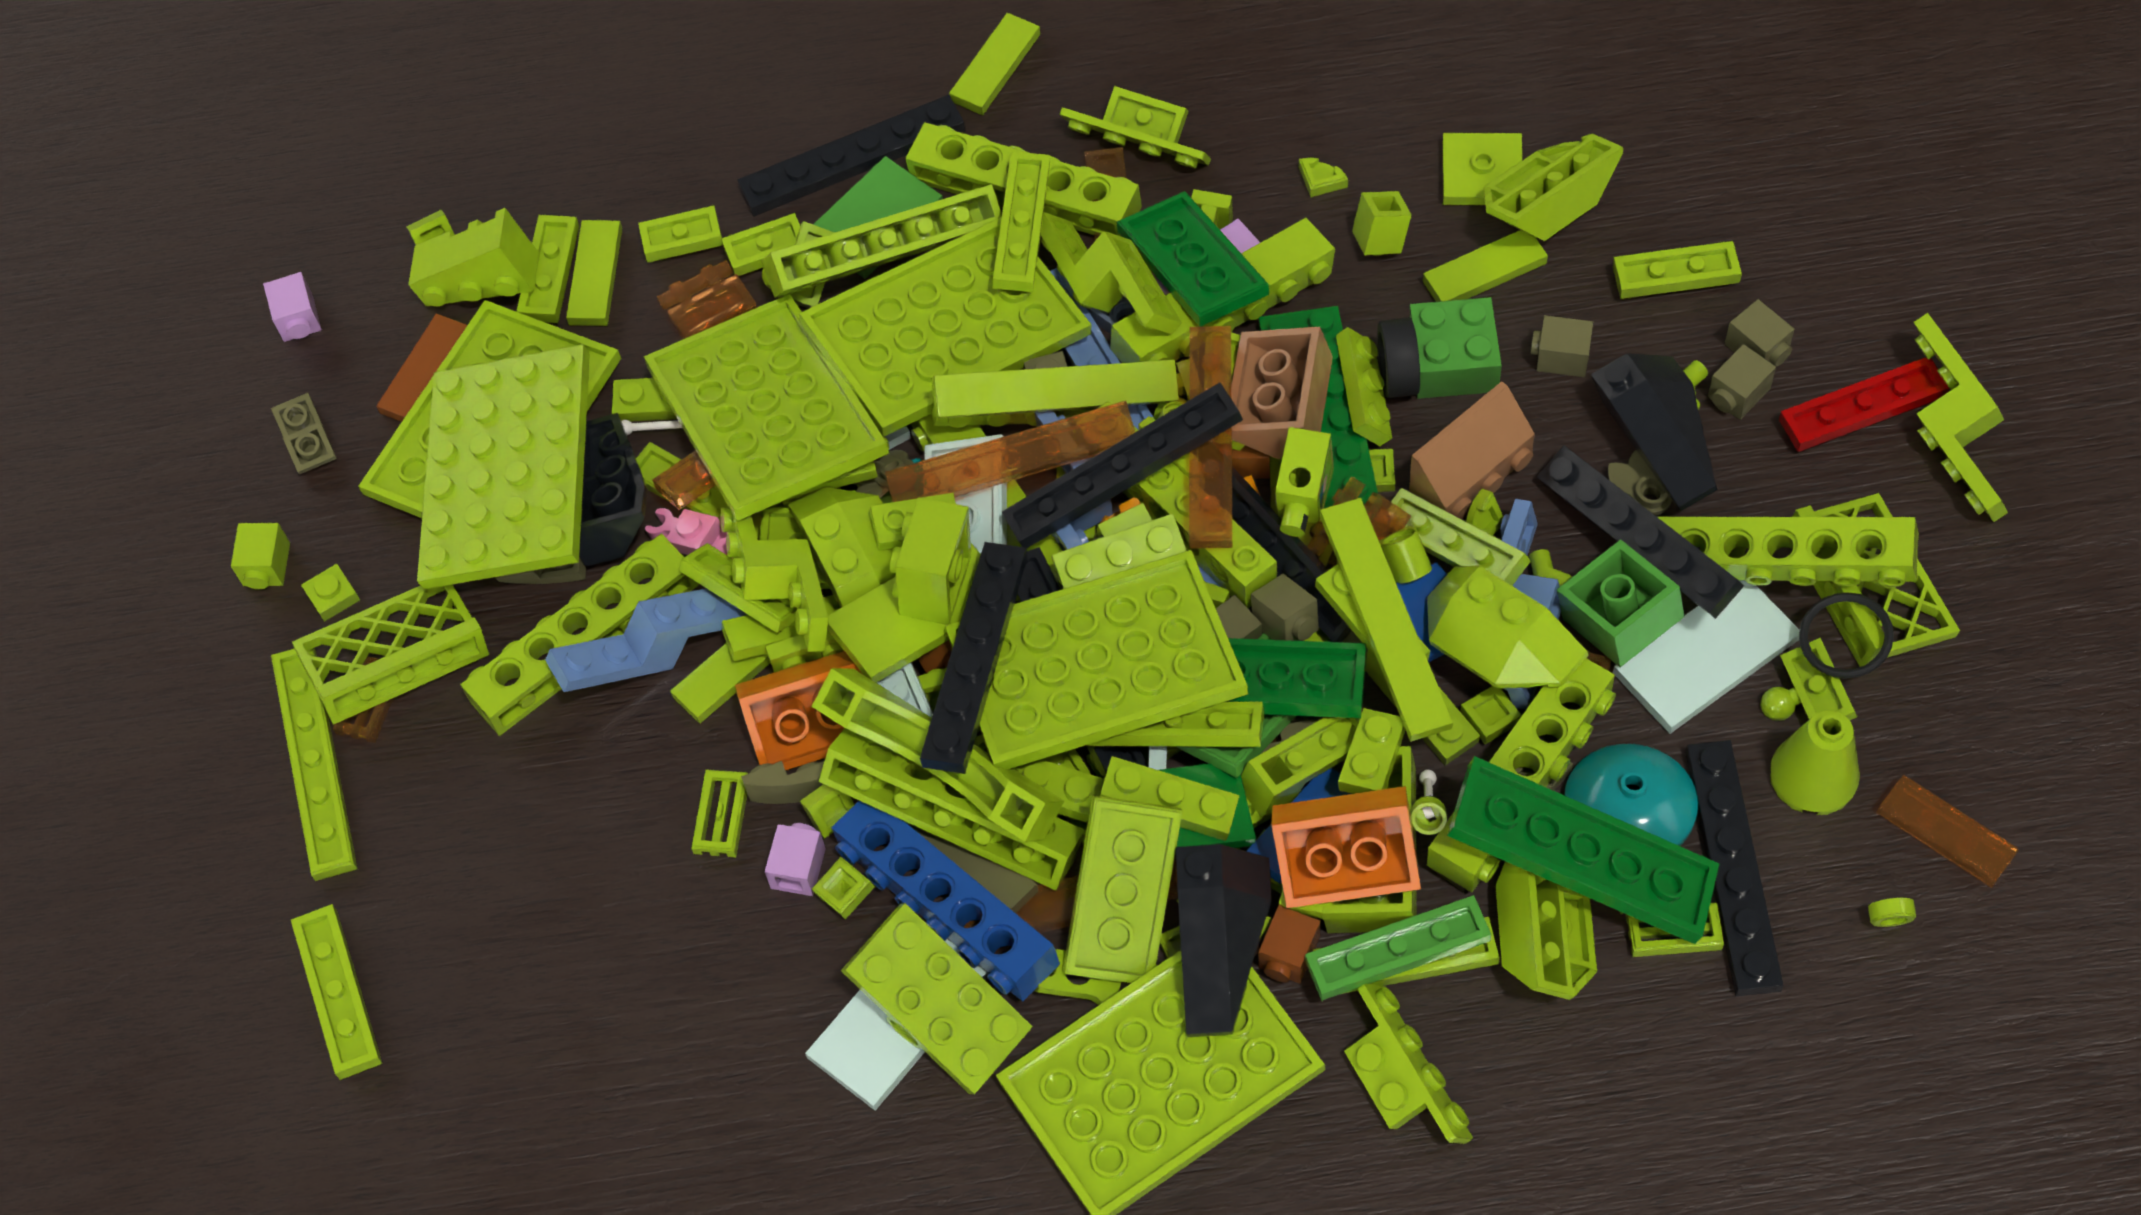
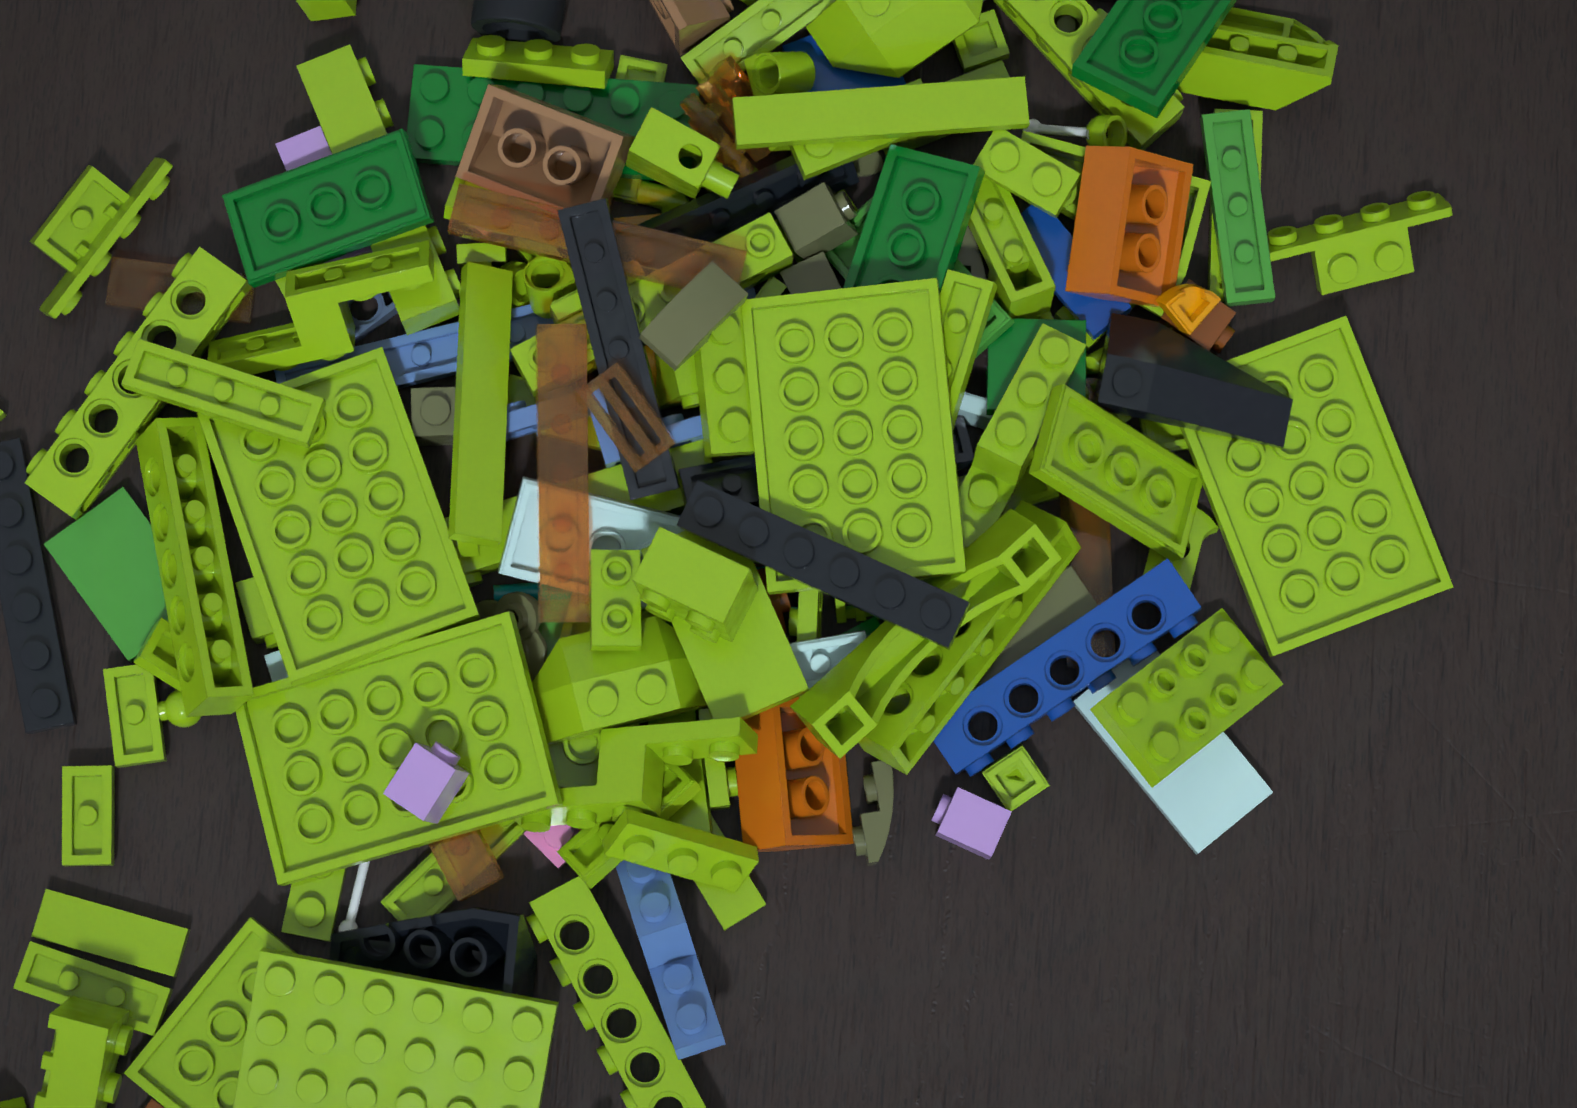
camera: 90 degrees left, 20 degrees up
(686, 532) = (526, 873): bright pink plate -> none
(709, 308) = (212, 796): clear orange plate -> none
(716, 846) = (848, 885): lime tile -> none
(719, 623) = (680, 850): none -> lime plate
(733, 415) = (427, 781): none -> lavender brick
(826, 807) = (922, 780): lime plate -> none
(1060, 478) = (610, 427): none -> clear orange tile
(1163, 504) = (693, 315): none -> olive slope
(1215, 206) = (243, 170): lime tile -> none
(1292, 916) = (1187, 305): none -> light orange tile
(1321, 177) = (219, 36): lime tile -> none

